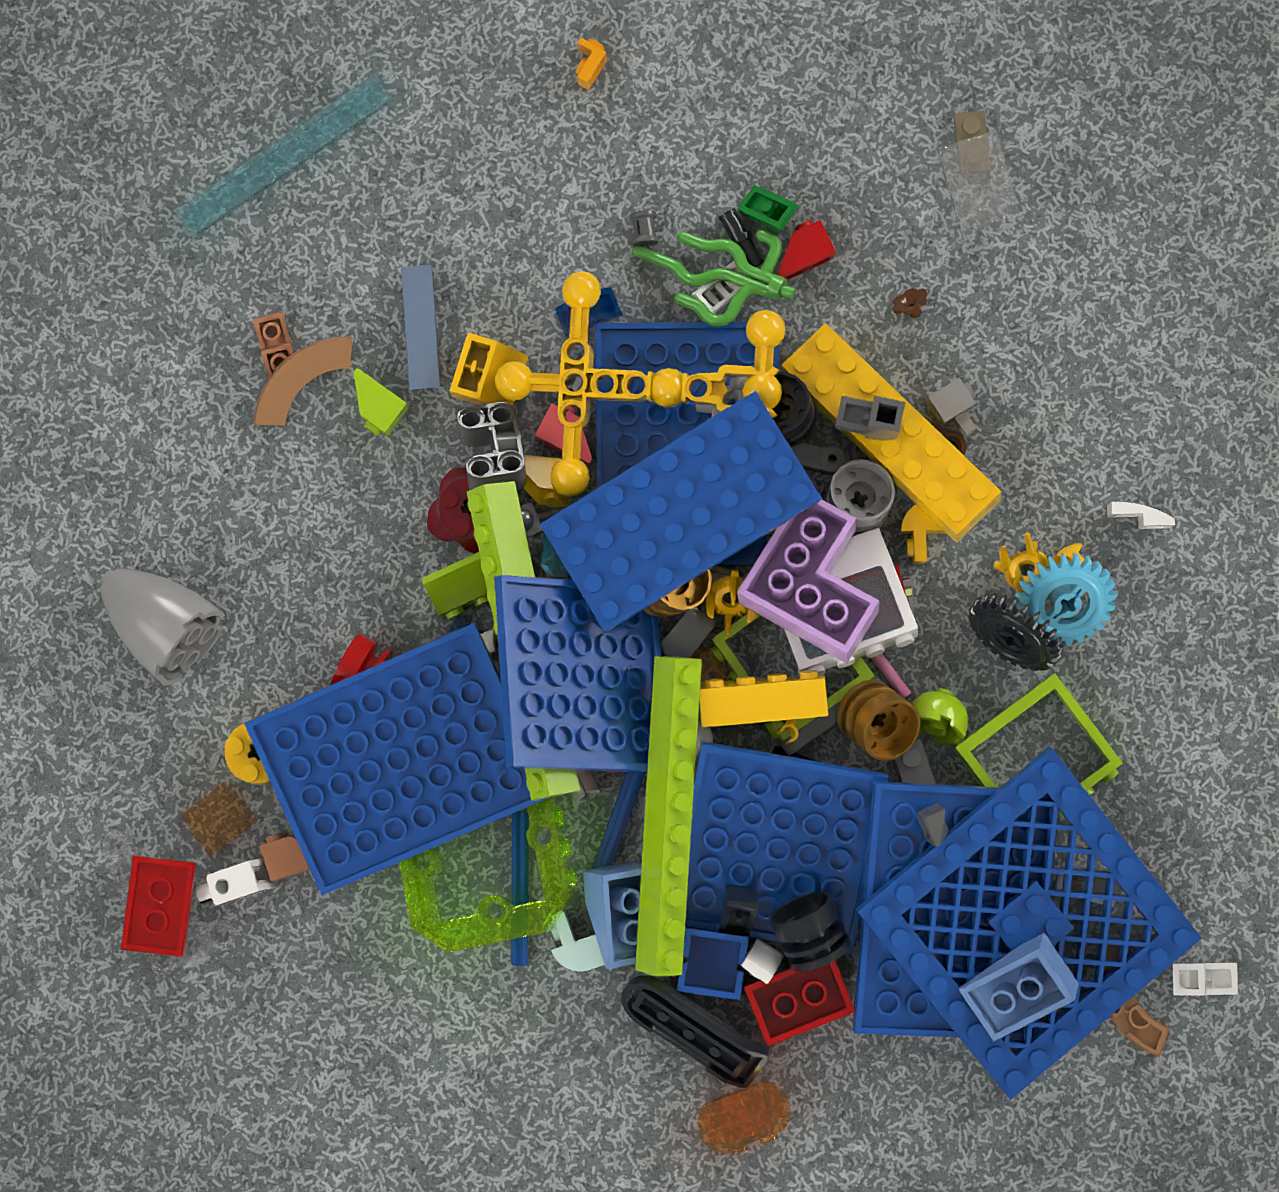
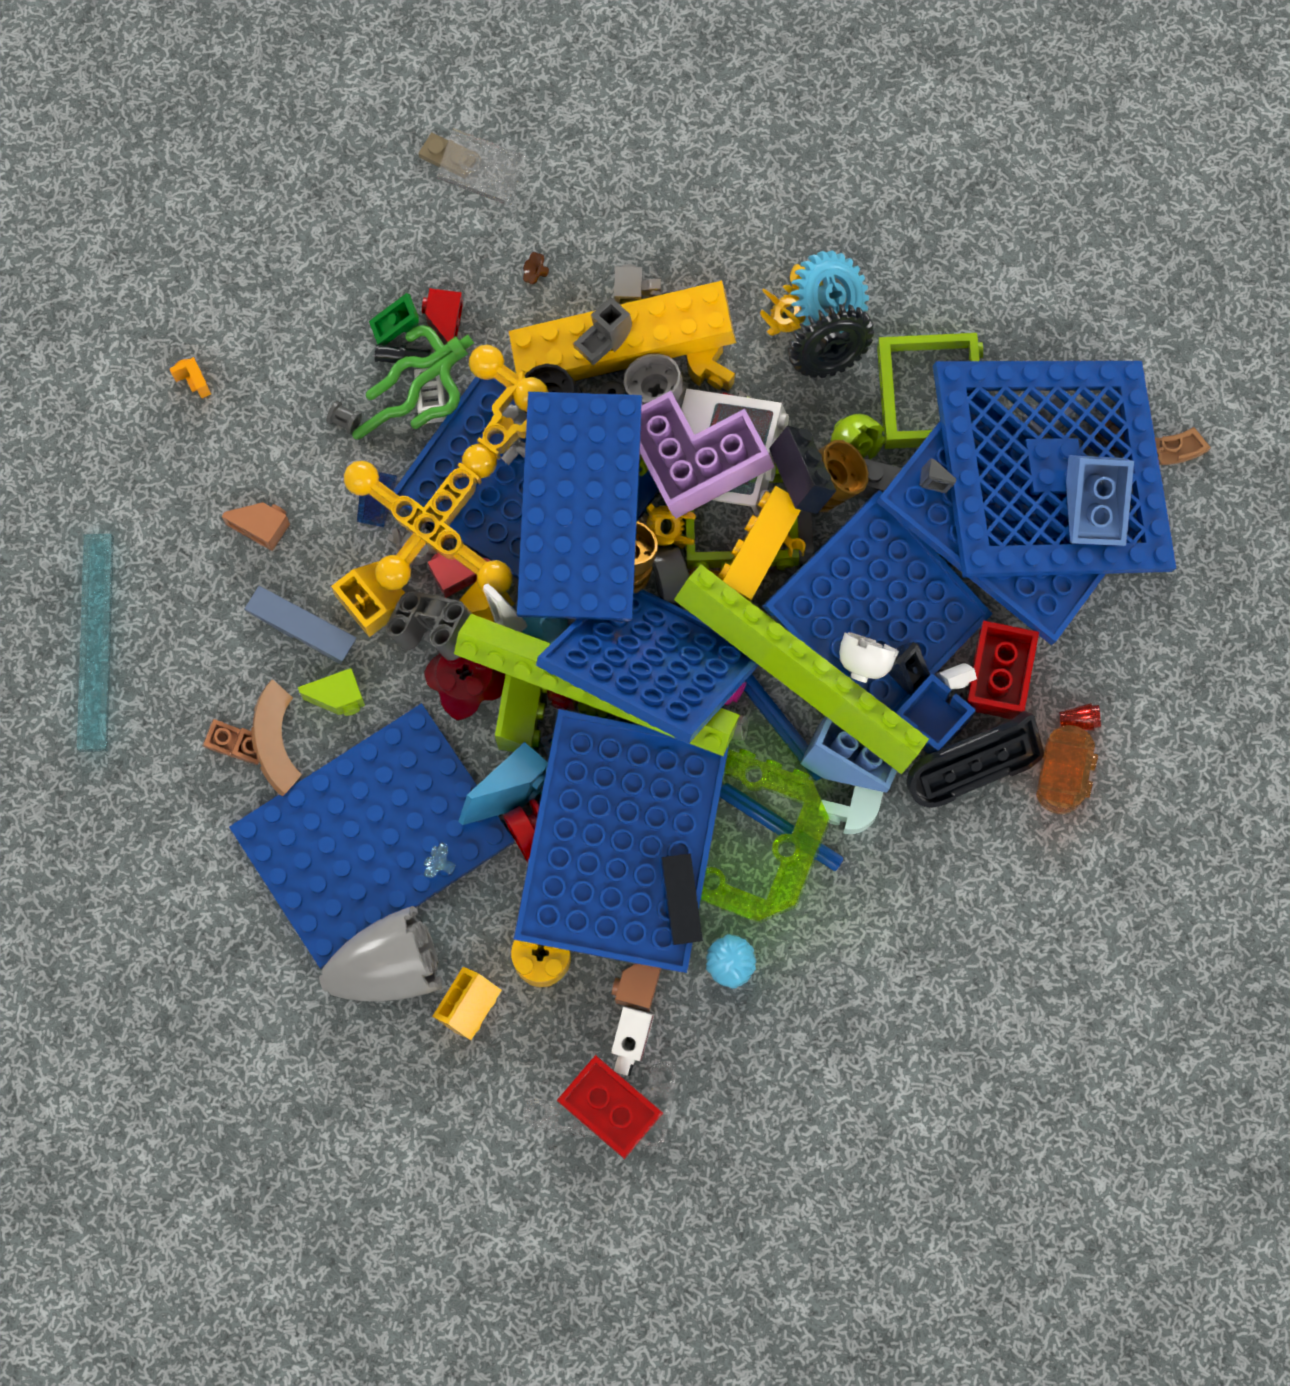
camera: 55 degrees left, 10 degrees down
(171, 716) = (467, 1003): none -> yellow brick
(217, 819) = (570, 1024): clear orange piece -> none
(272, 525) = (358, 833): none -> blue plate
(279, 604) = (438, 861): none -> clear light blue plant
(362, 926) = (731, 961): none -> medium azure hair
(380, 848) = (681, 899): none -> black tile
(389, 622) = (507, 787): none -> dark azure slope
(491, 224) = (259, 523): none -> nougat slope
(546, 504) = (502, 610): none -> white slope
(718, 868) = (866, 657): none -> white cylinder
(805, 1100) = (1083, 716): none -> clear red cone
(810, 931) = (957, 622): black wheel -> none
(857, 692) = (802, 469): none -> black brick
(1147, 517) = (805, 207): white slope -> none
(1205, 979) = (1173, 380): white slope -> none

